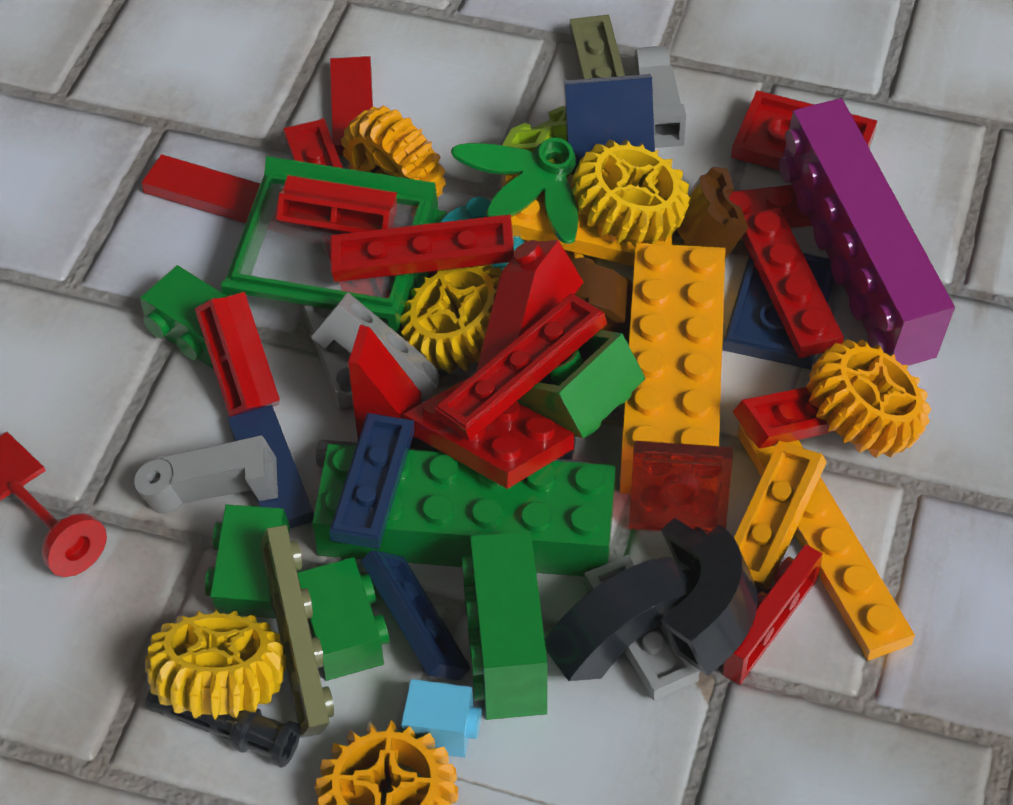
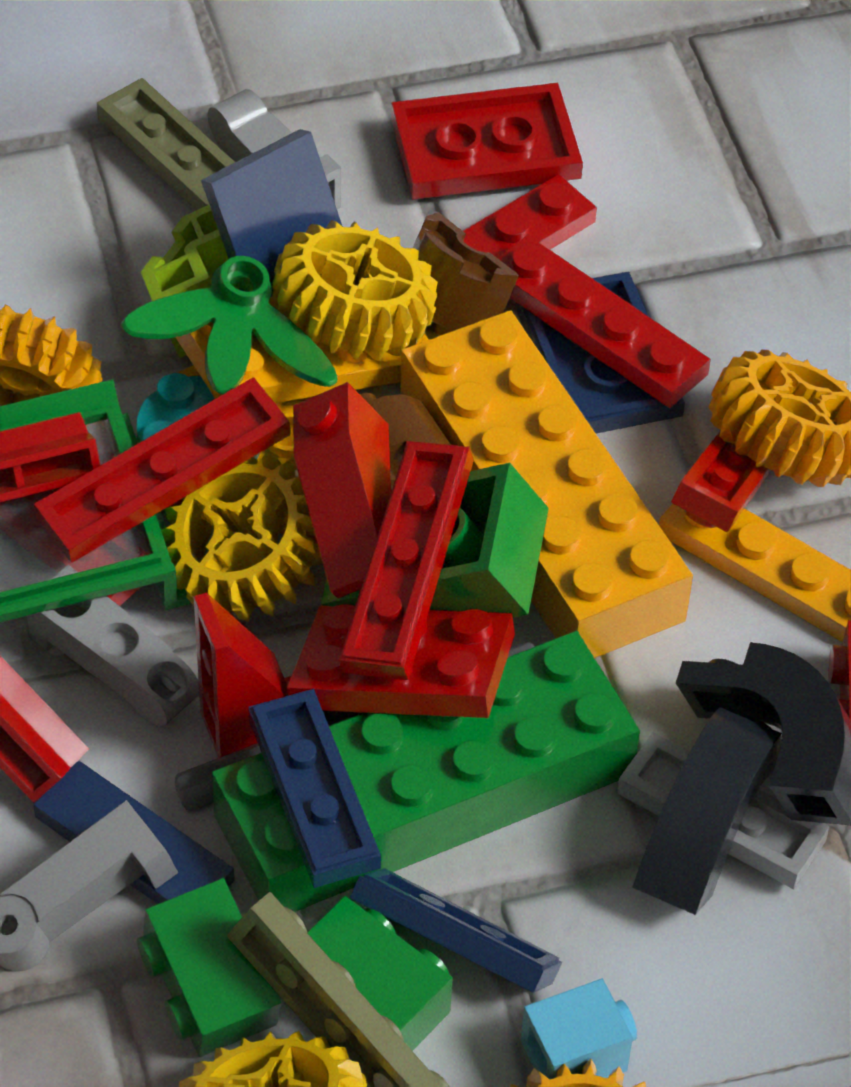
camera: 35 degrees left, 0 degrees up
(343, 326) = (156, 613): light grey leg -> none
(505, 625) = (589, 881): green brick -> none
(681, 484) = (664, 618): clear red plate -> none
(777, 509) = (782, 581): light orange plate -> none
(865, 233) = (657, 220): magenta brick -> none

